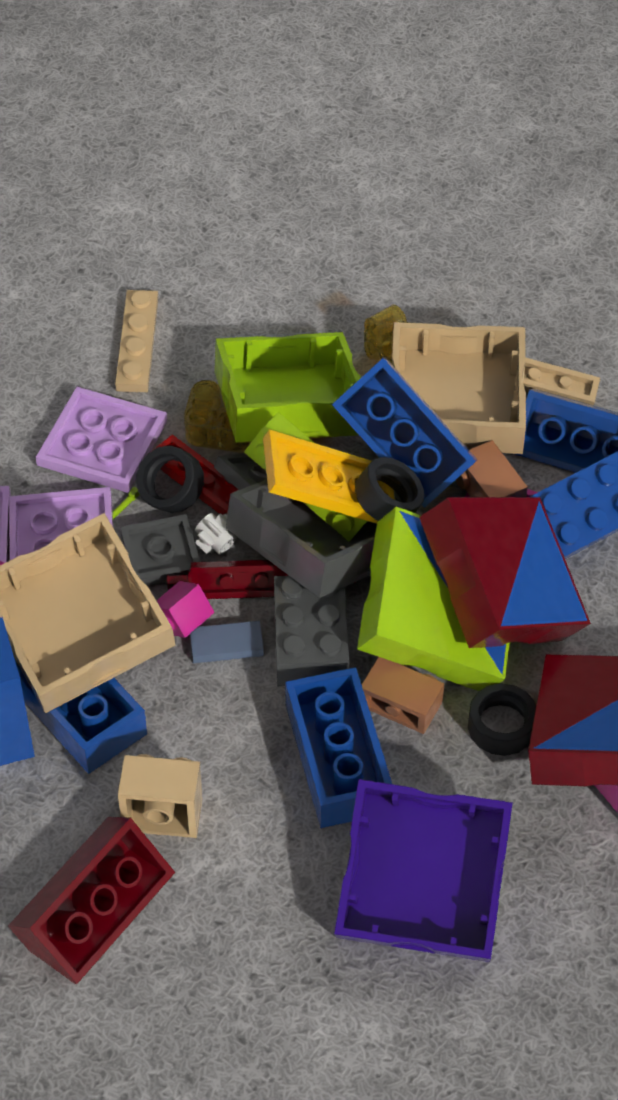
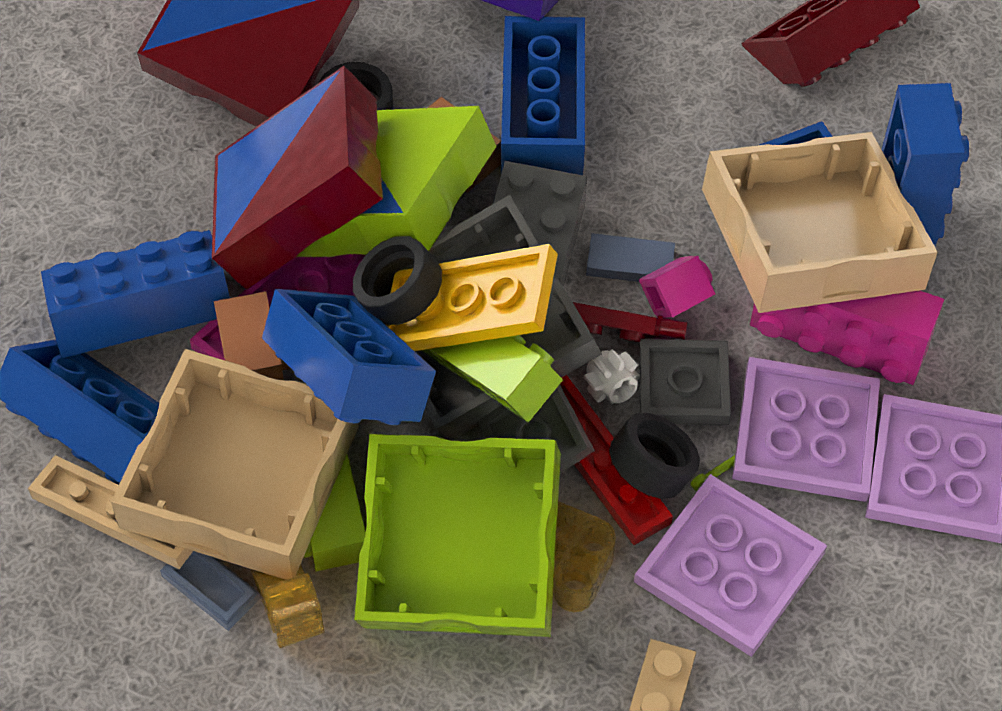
camera: 165 degrees left, 5 degrees up
(161, 794) = (746, 76): tan brick -> none

